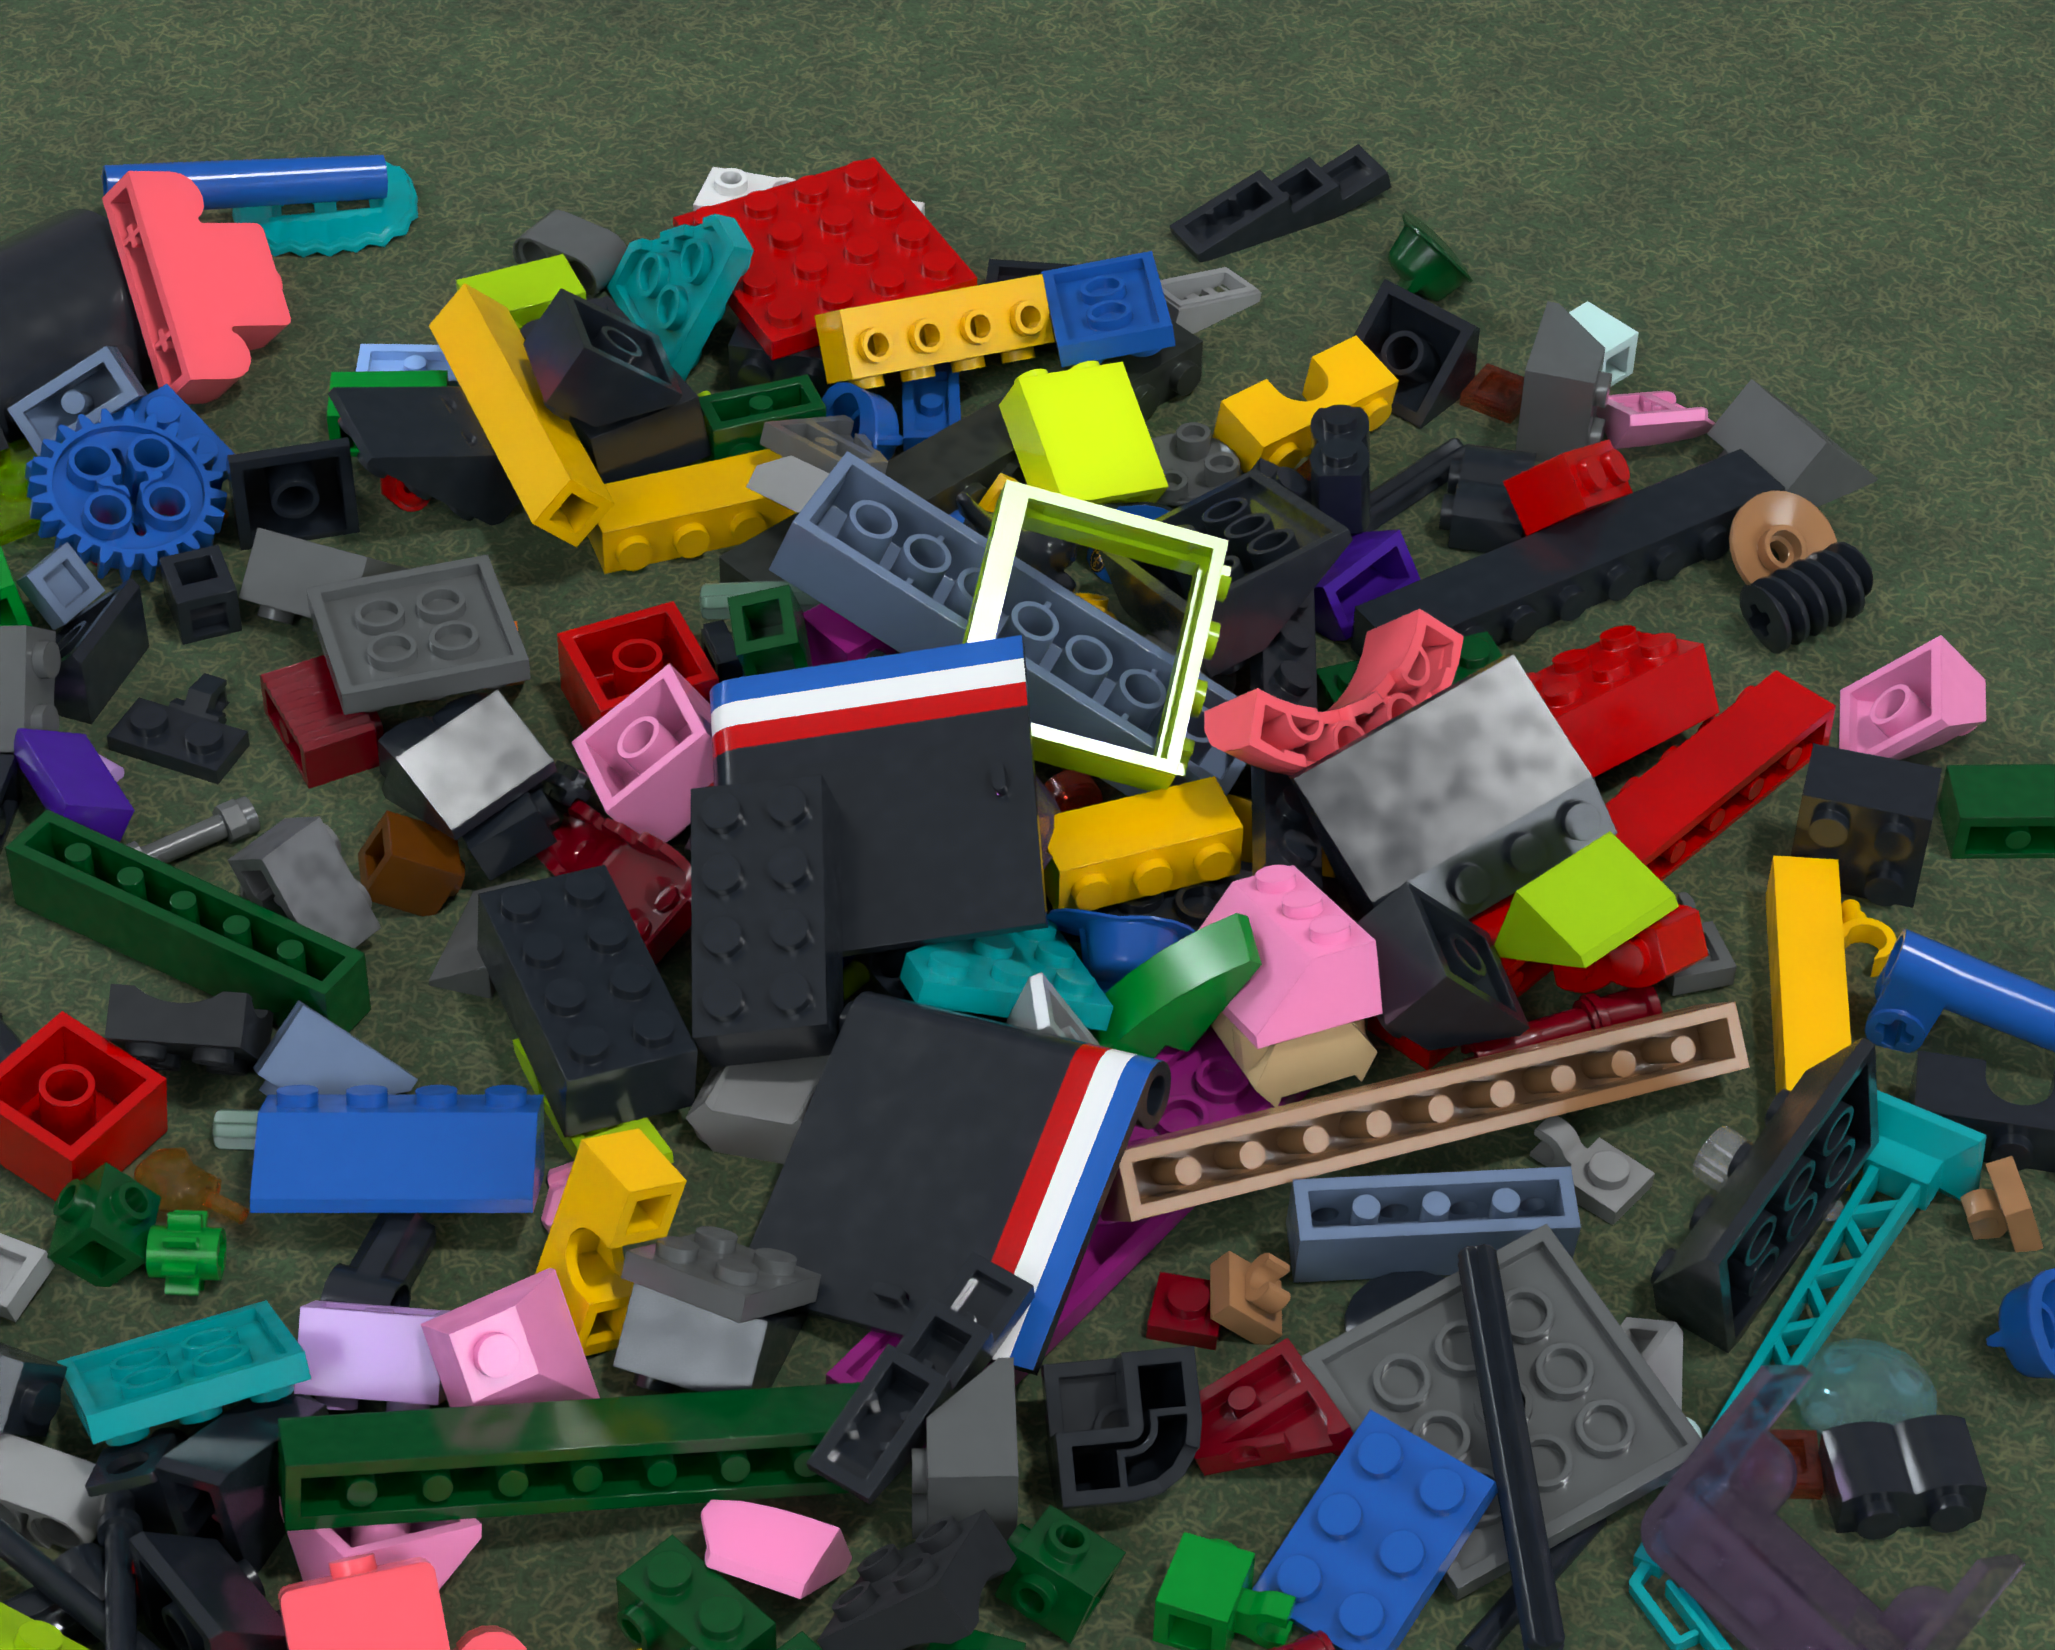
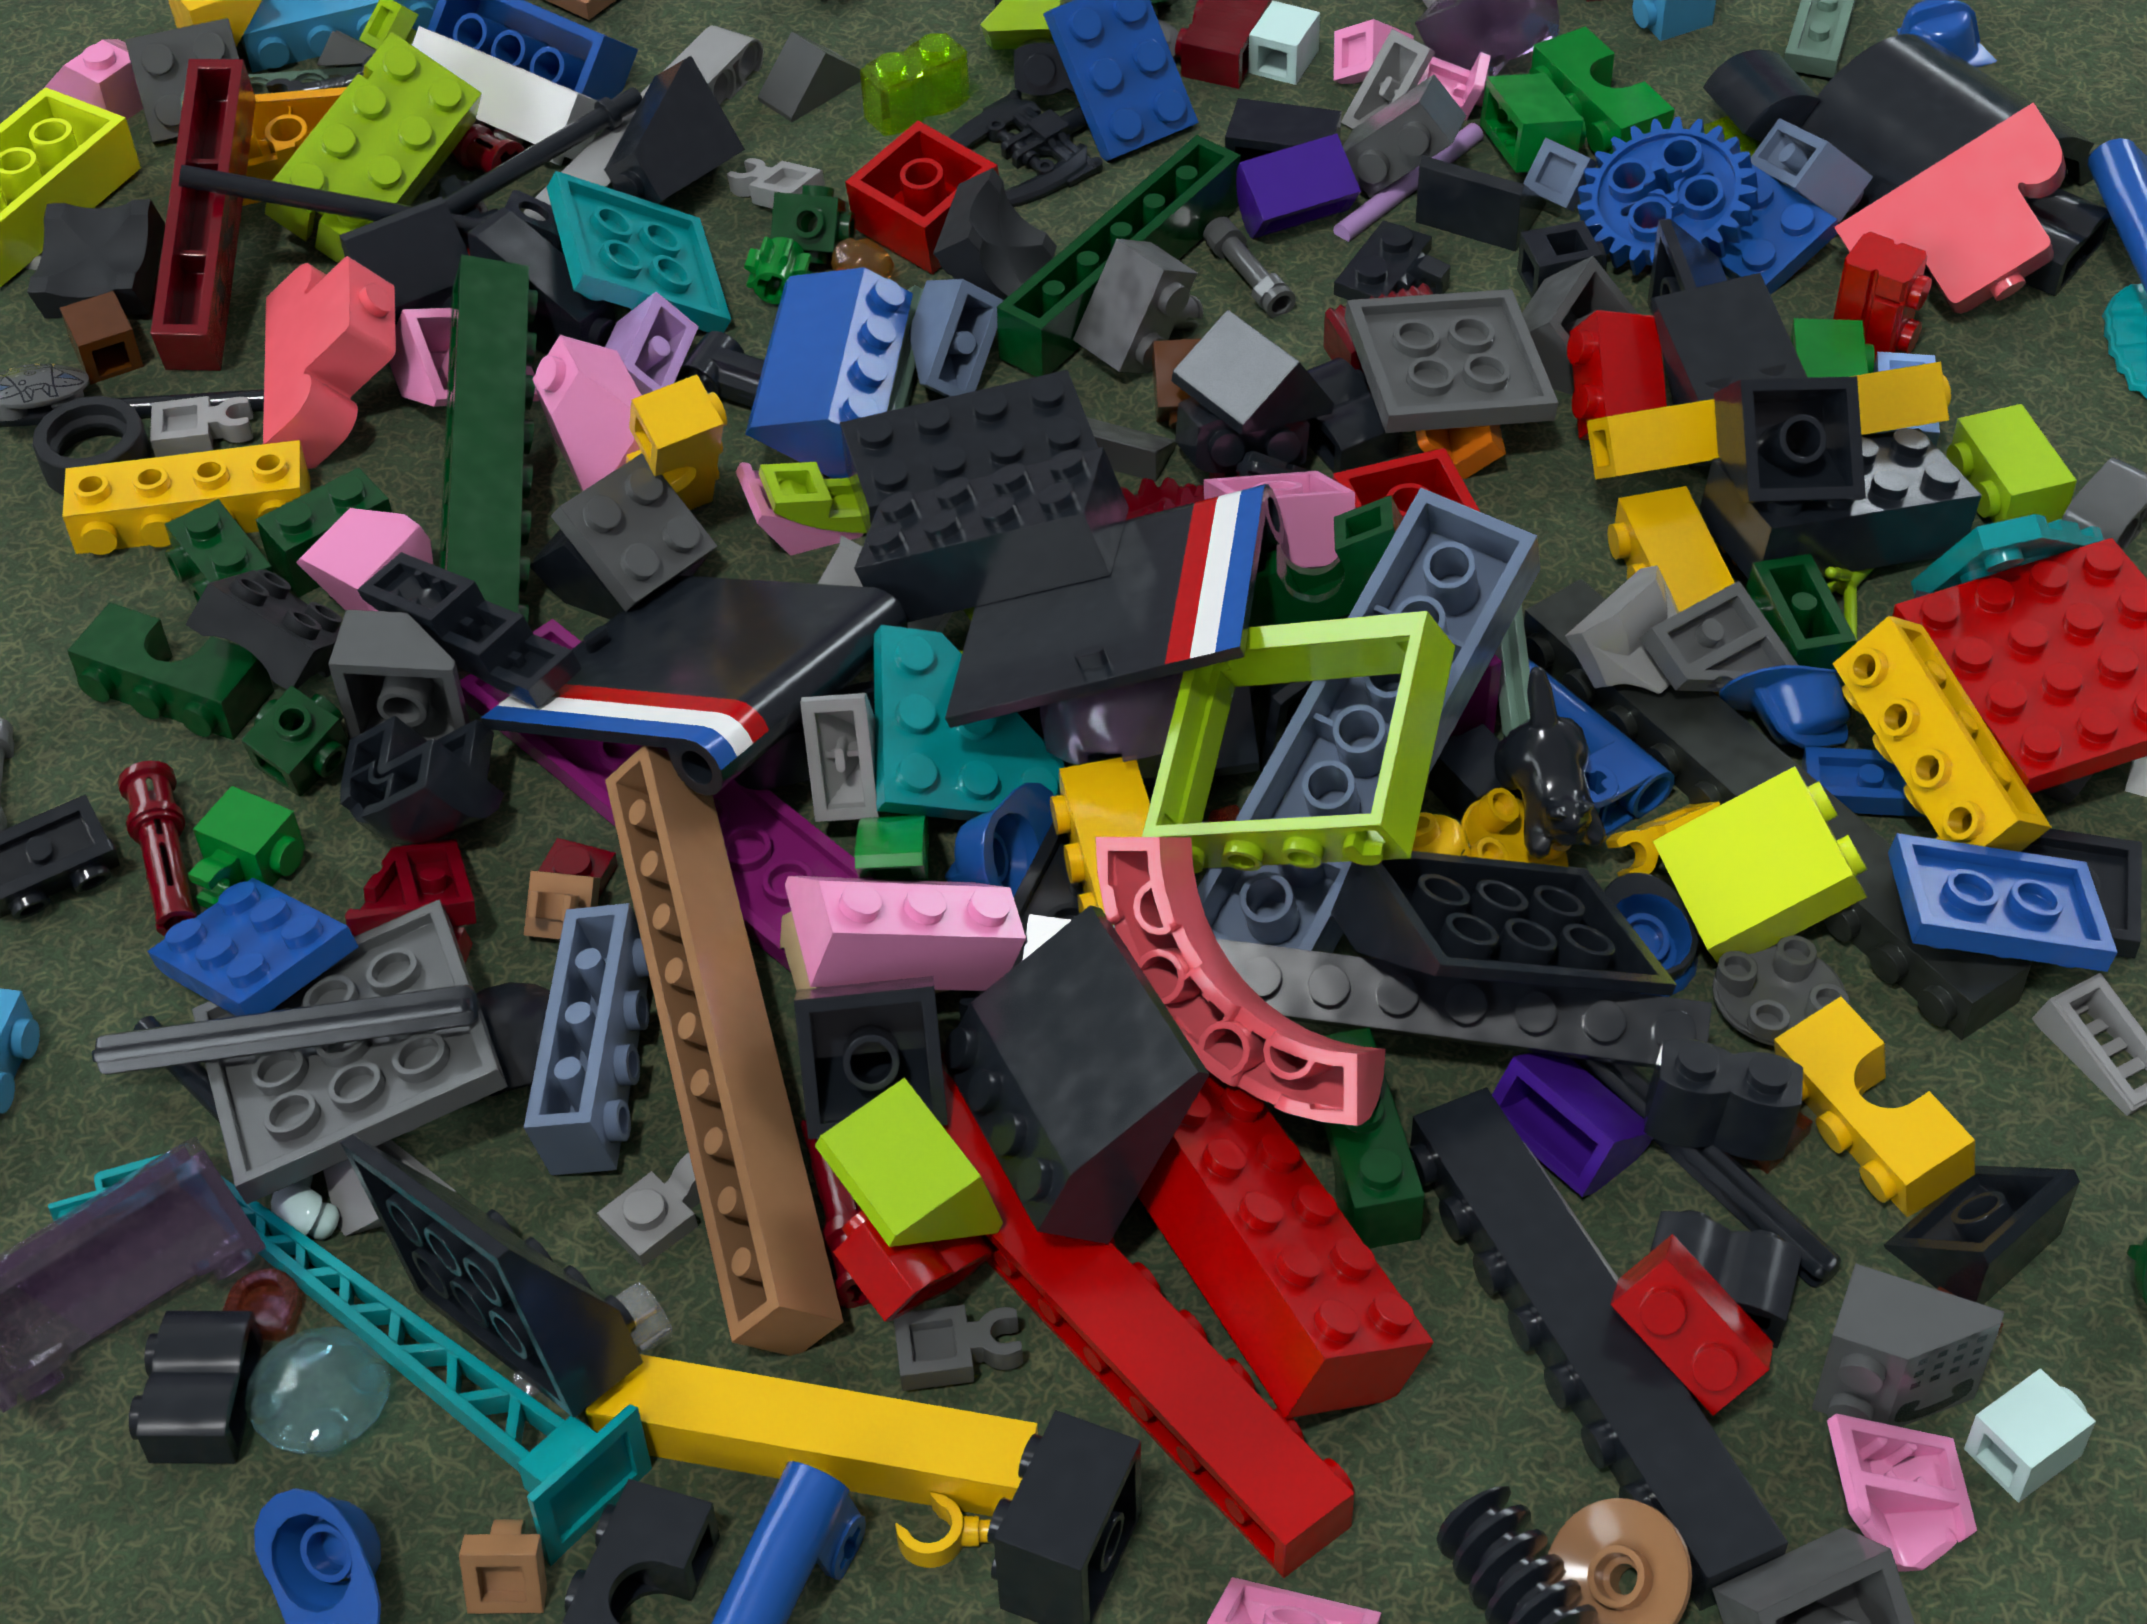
camera: 100 degrees right, 5 degrees up
(296, 357) = (1884, 289): none -> red brick
(418, 526) = (1615, 366): none -> red brick

